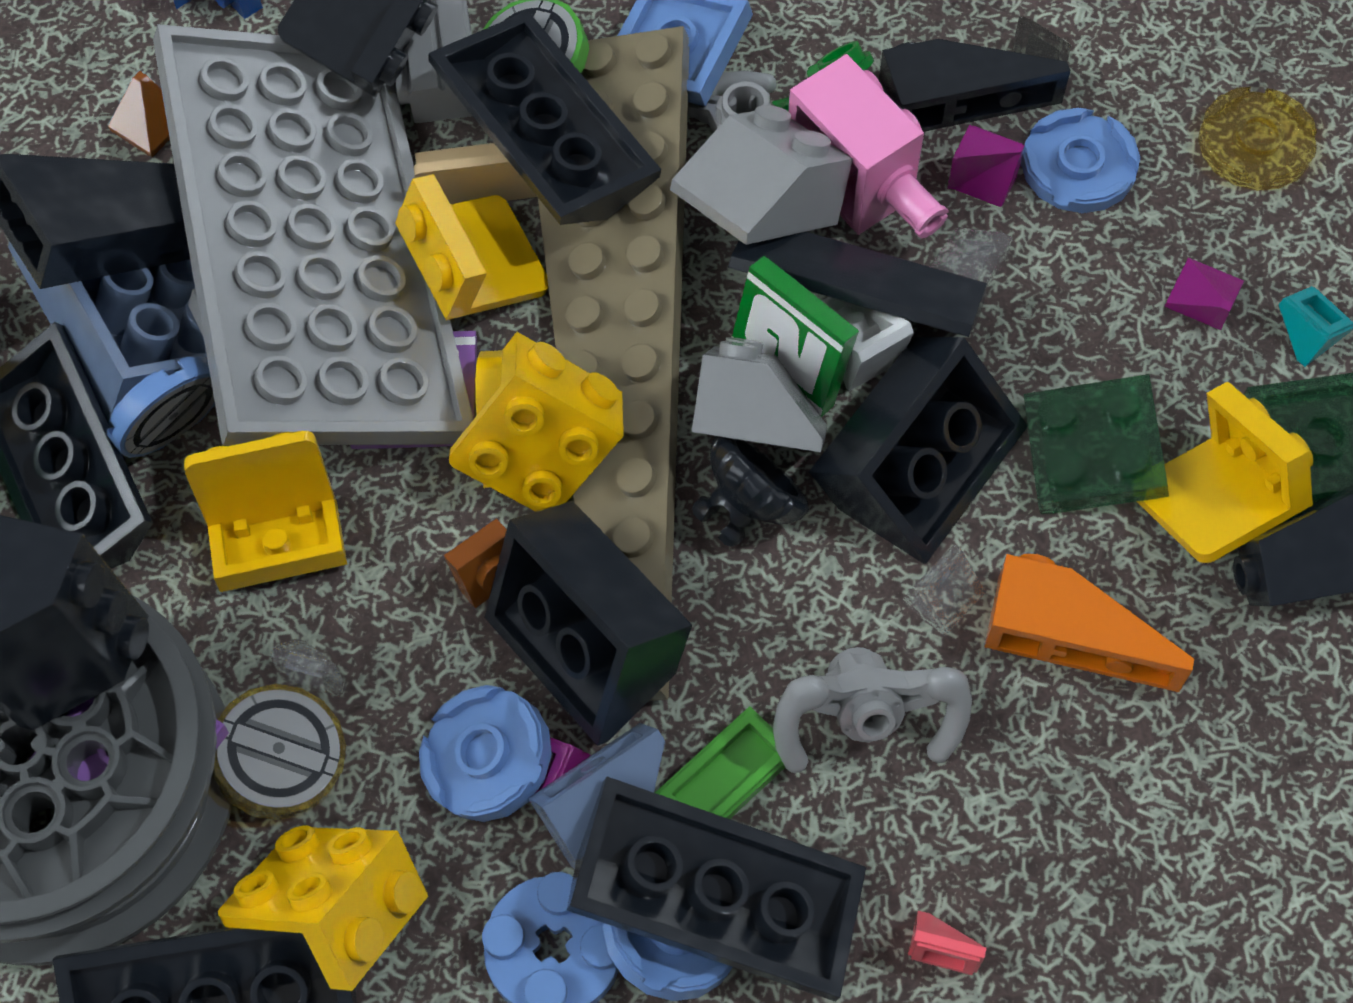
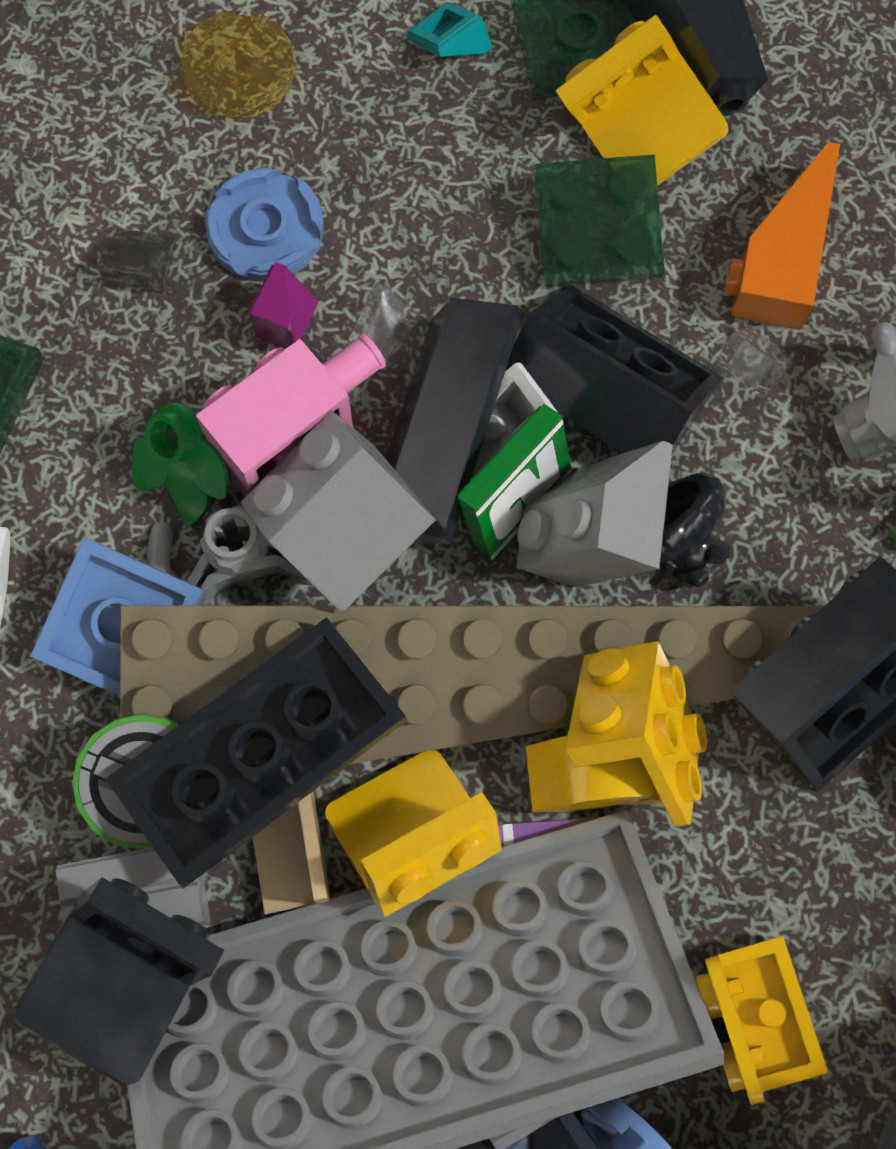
camera: 95 degrees left, 10 degrees up
(476, 562) = (780, 785): dark orange plate -> none
(965, 83) = (176, 331): black slope -> none
(1204, 293) = (419, 120): magenta slope -> none

